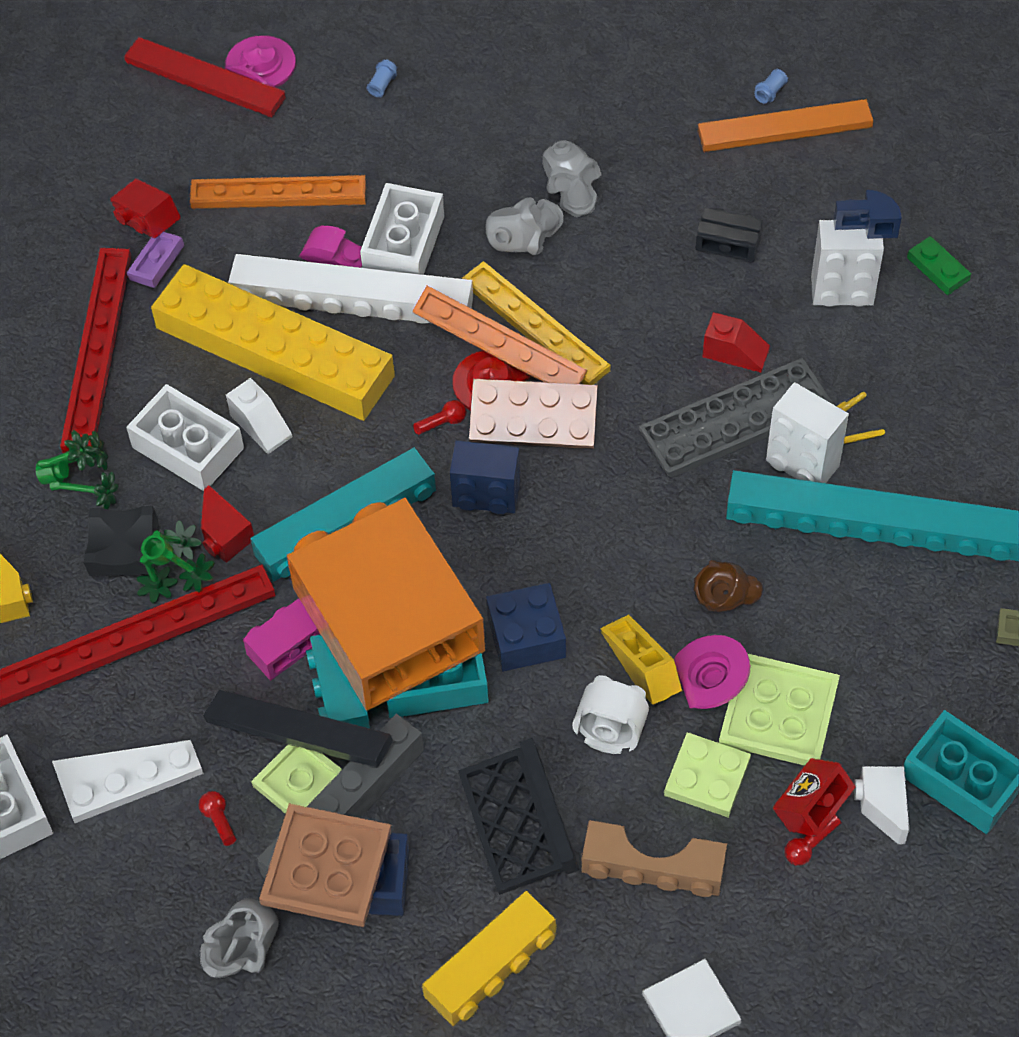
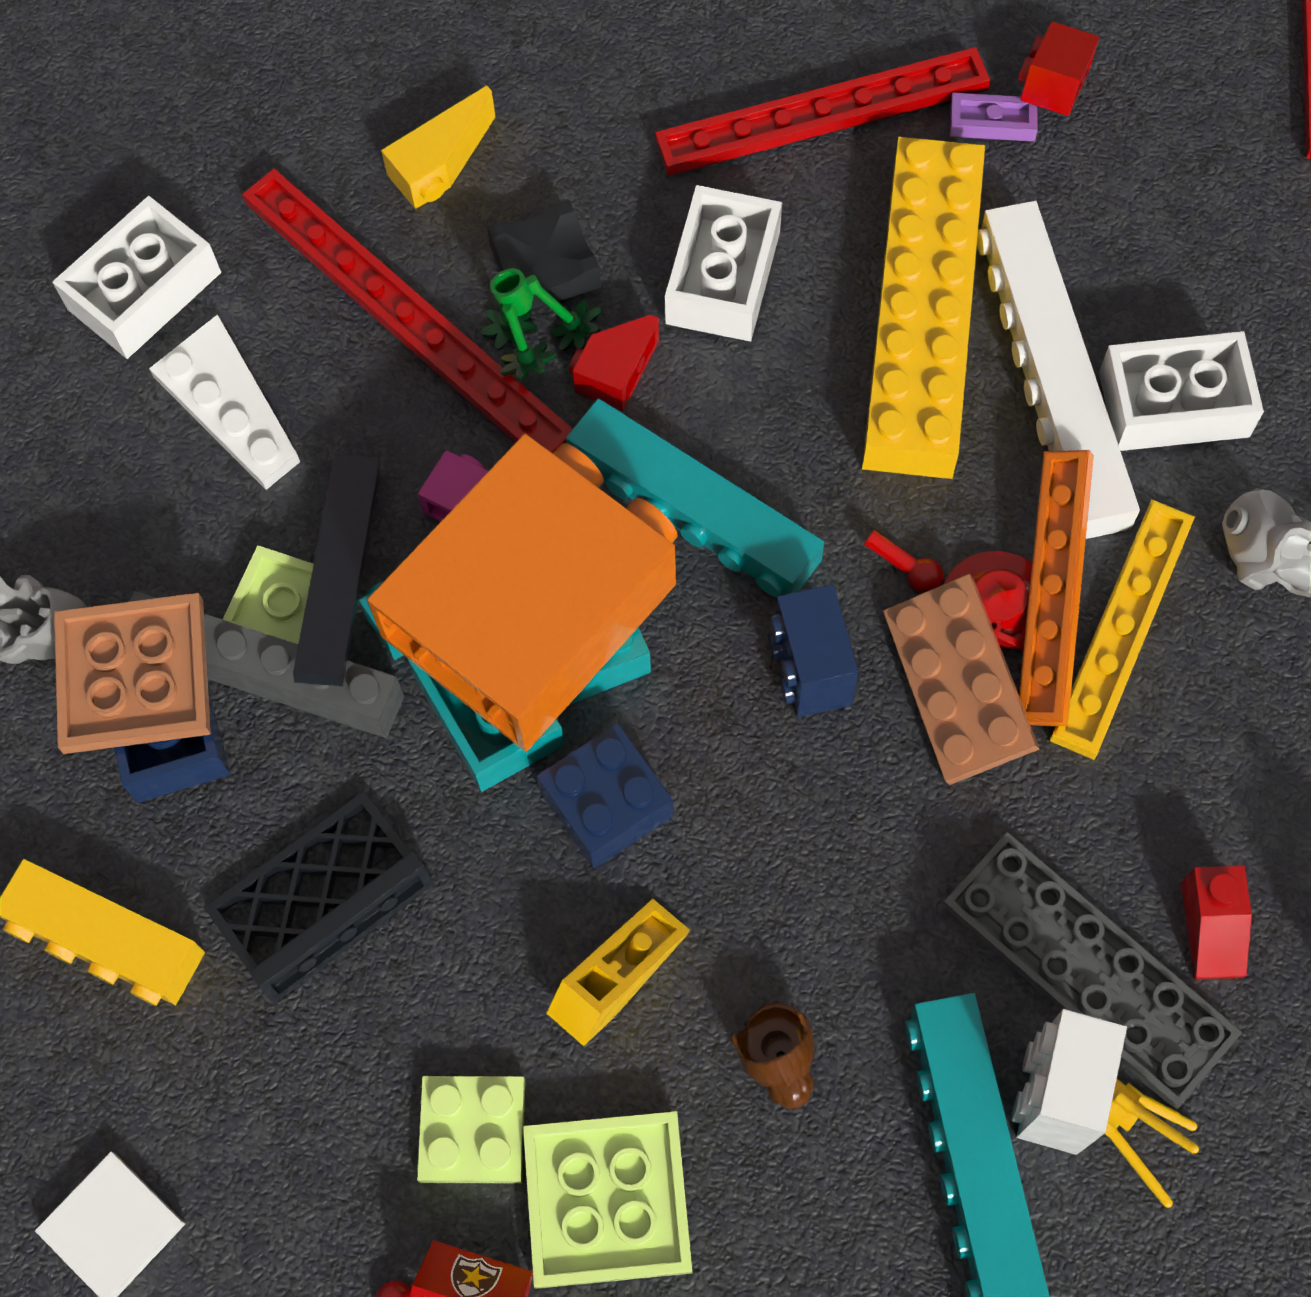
camera: 70 degrees right, 10 degrees up
(55, 469) = (627, 144): dark green plant -> none
(212, 806) = (221, 517): red bar -> none
(258, 416) = (800, 335): white slope -> none
(278, 192) = (1183, 218): orange tile -> none
(329, 246) = (1110, 315): dark pink brick -> none
(611, 715) = (499, 960): white brick -> none
(693, 869) = (299, 1034): medium nougat arch -> none
(712, 670) = (626, 1080): dark pink hat -> none

